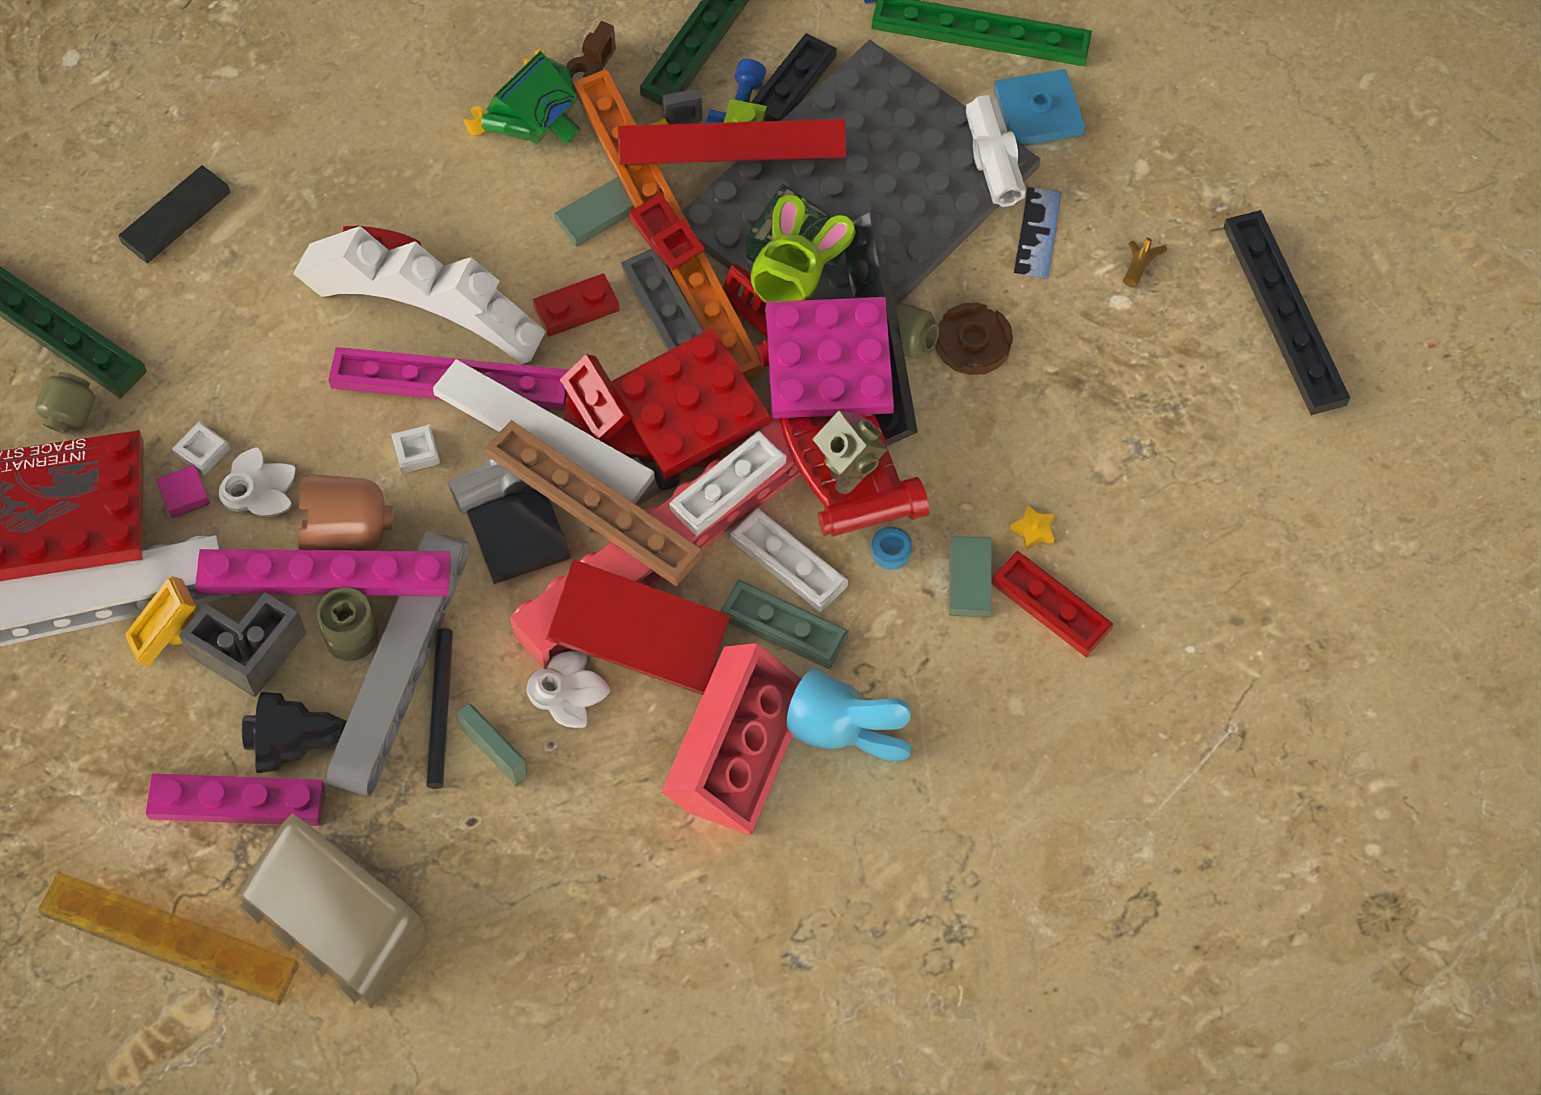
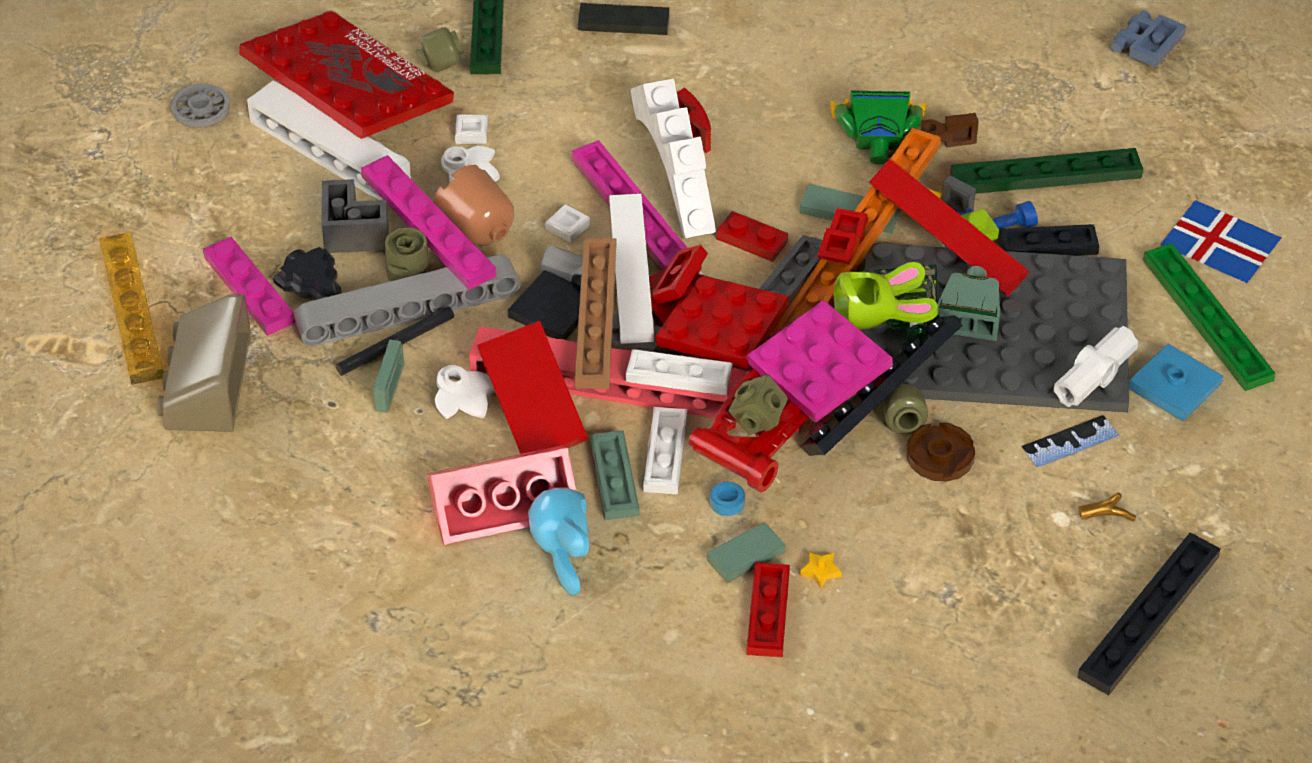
camera: 55 degrees right, 15 degrees down
(161, 621) = (335, 170): yellow tile -> none
(183, 491) = (433, 138): dark pink tile -> none
(844, 185) = (974, 302): none -> sand green torso

